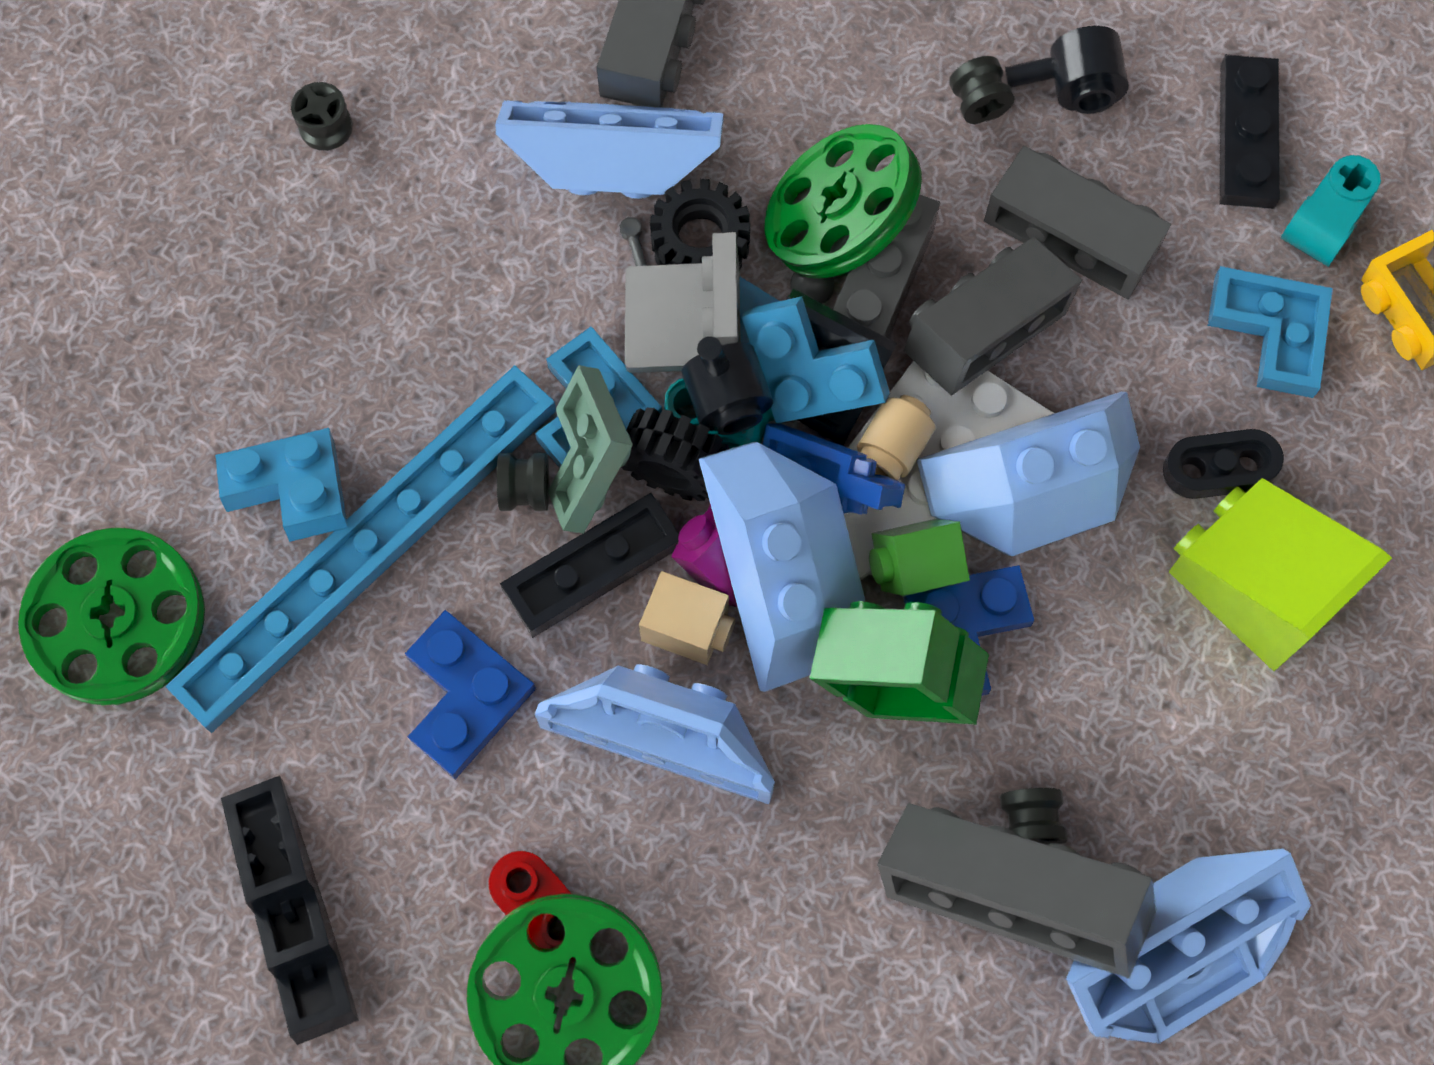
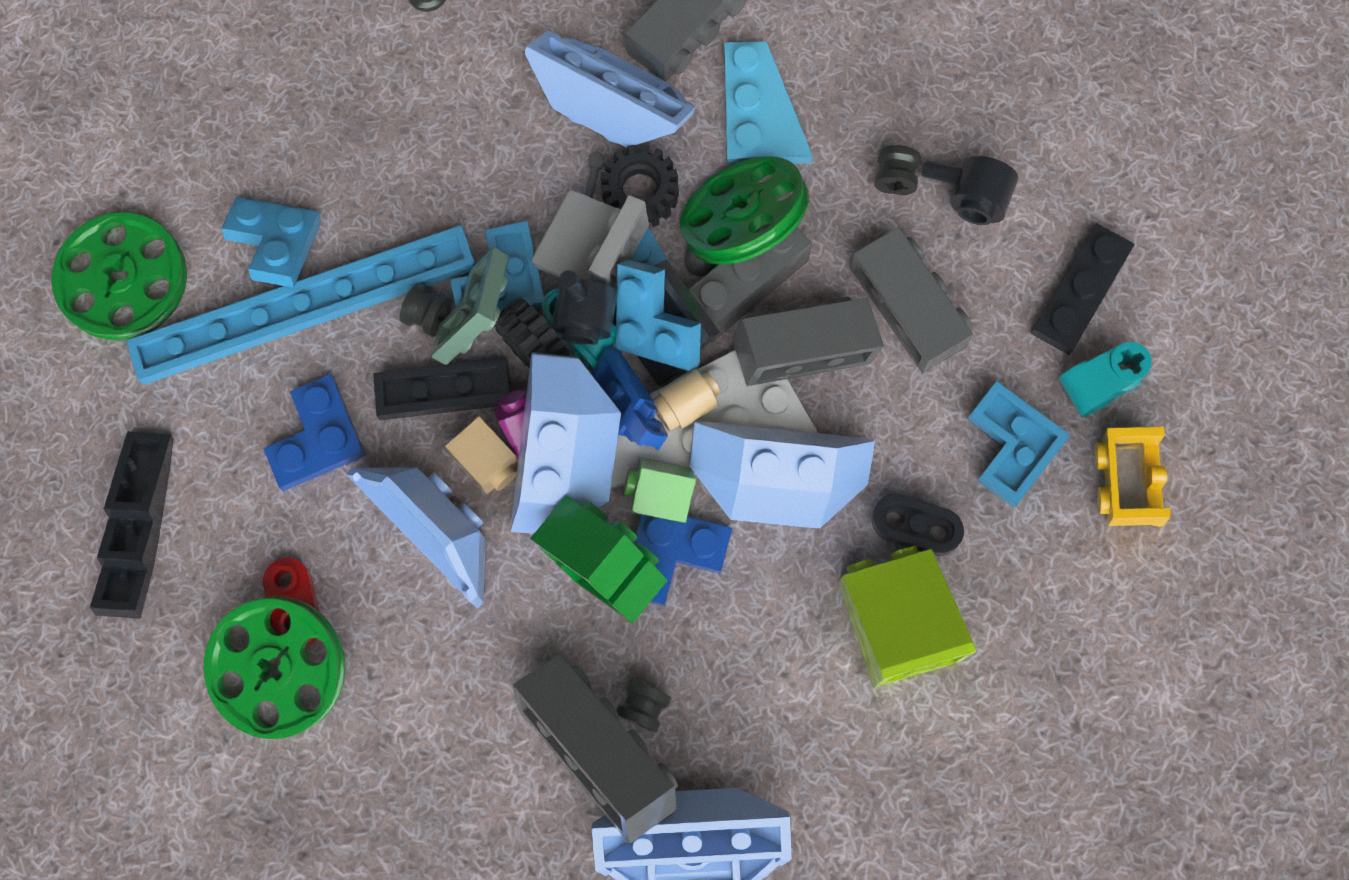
camera: 30 degrees right, 5 degrees up
(784, 89) = (759, 108): none -> medium azure wing

